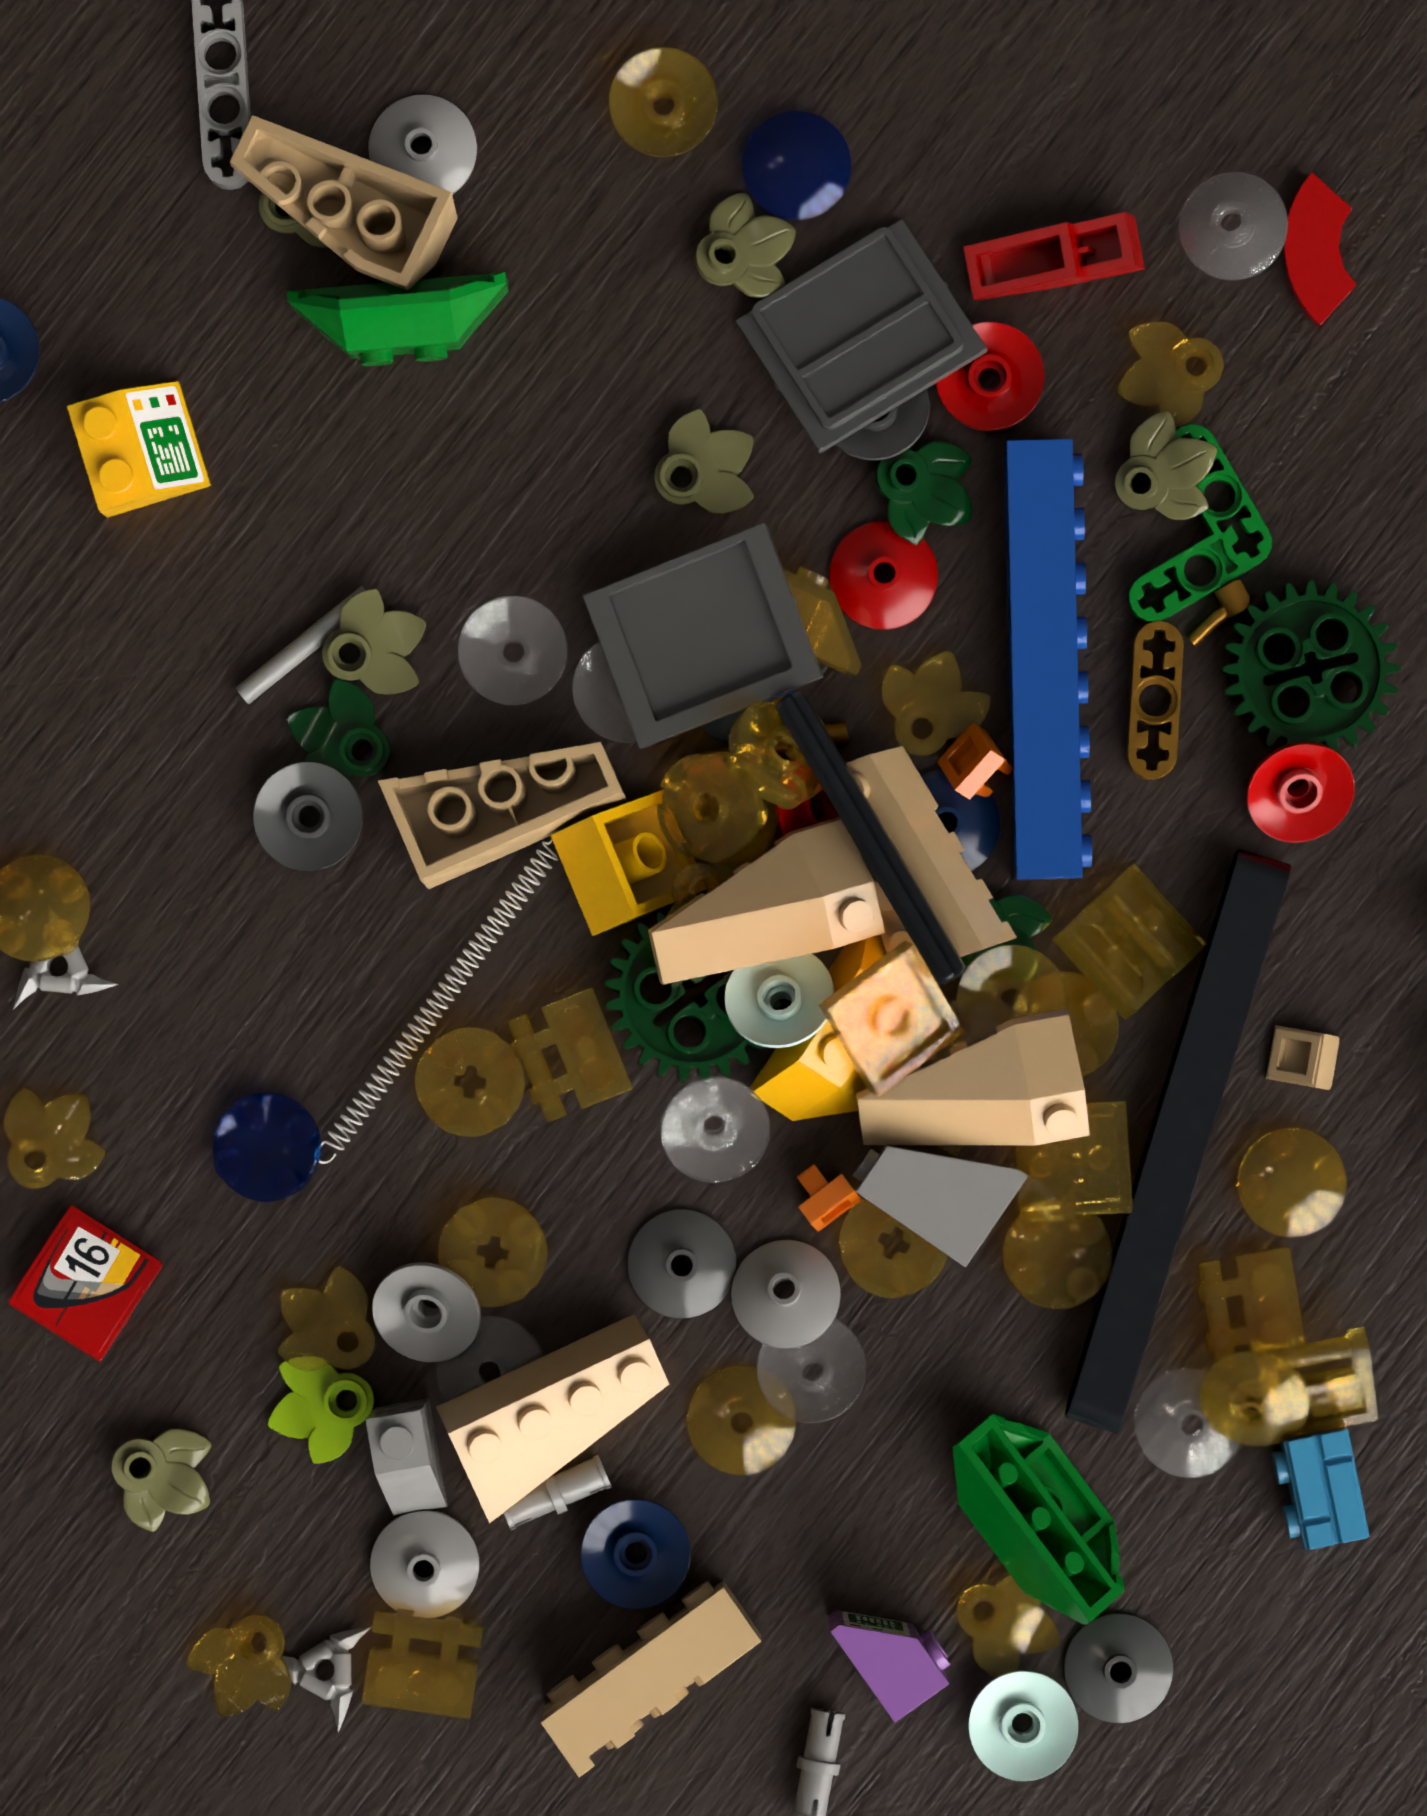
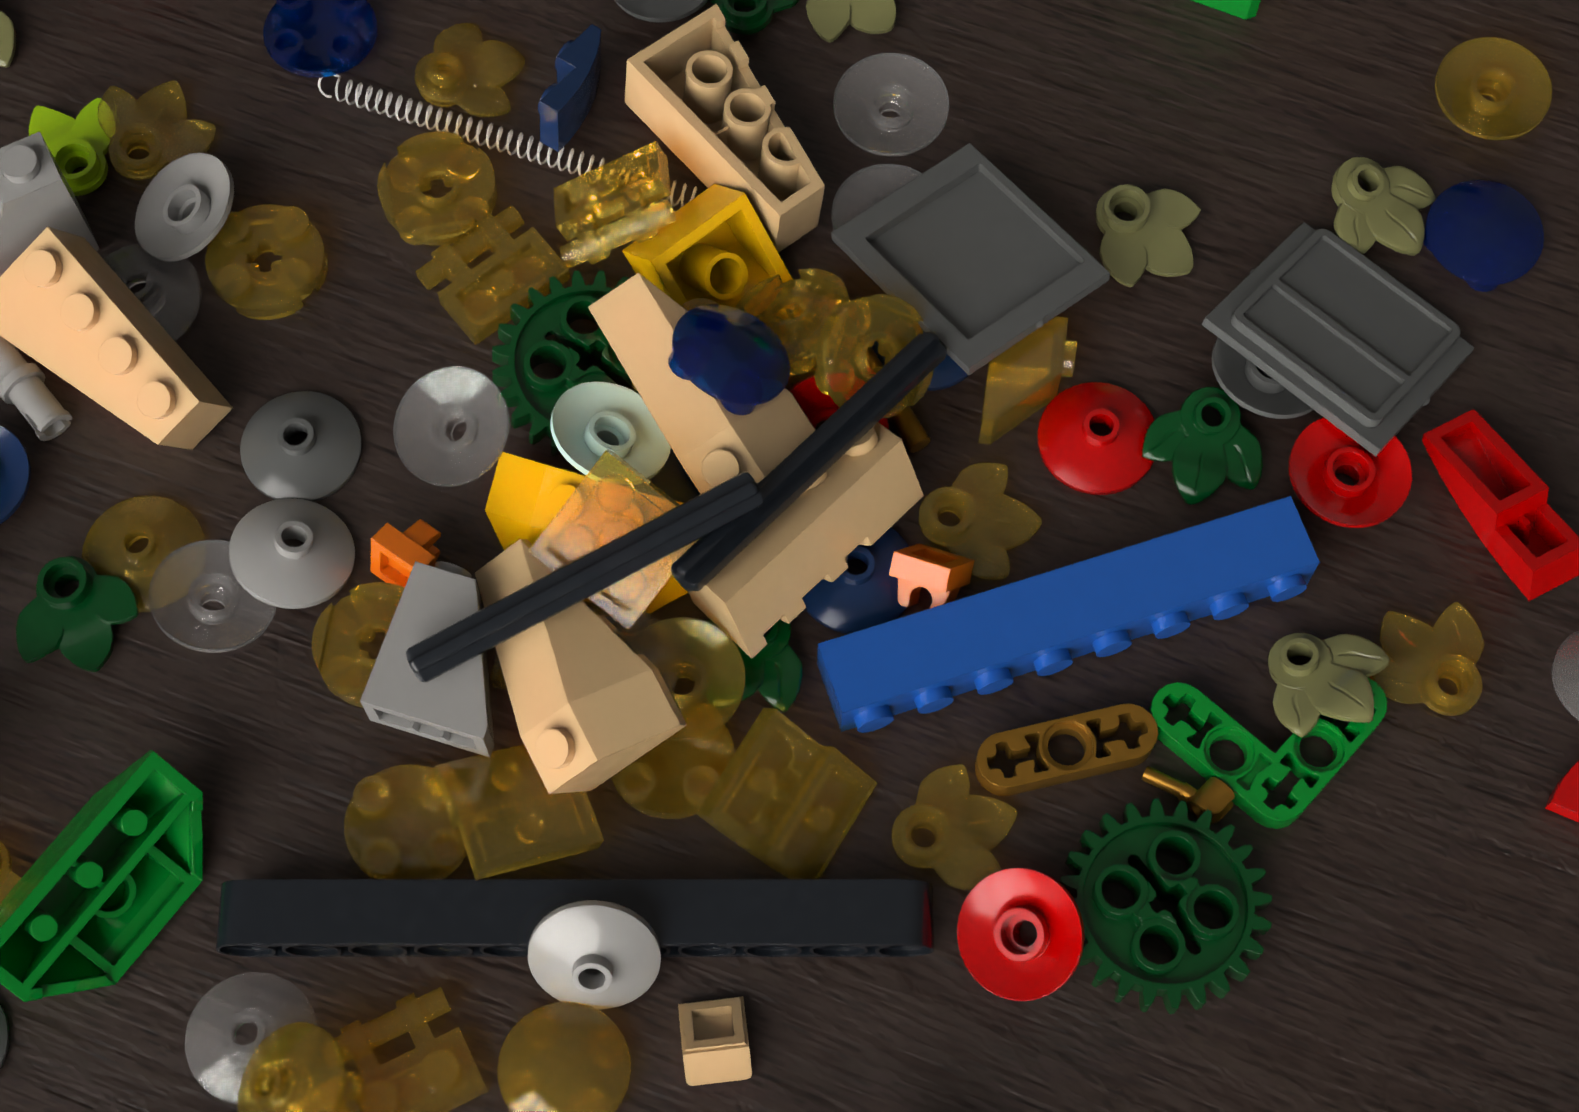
camera: 65 degrees right, 20 degrees down
(350, 1014) = (468, 71): none -> clear yellow plate
(401, 928) = (570, 100): none -> dark blue slope
(532, 930) = (607, 193): none -> clear yellow plate
(757, 877) = (729, 356): none -> clear blue dish
(793, 1489) = (76, 623): none -> dark green plate
(928, 1055) = (584, 577): none -> black axle
(1195, 807) = (962, 827): none -> clear yellow plate
(1218, 1134) = (594, 954): none -> light grey dish

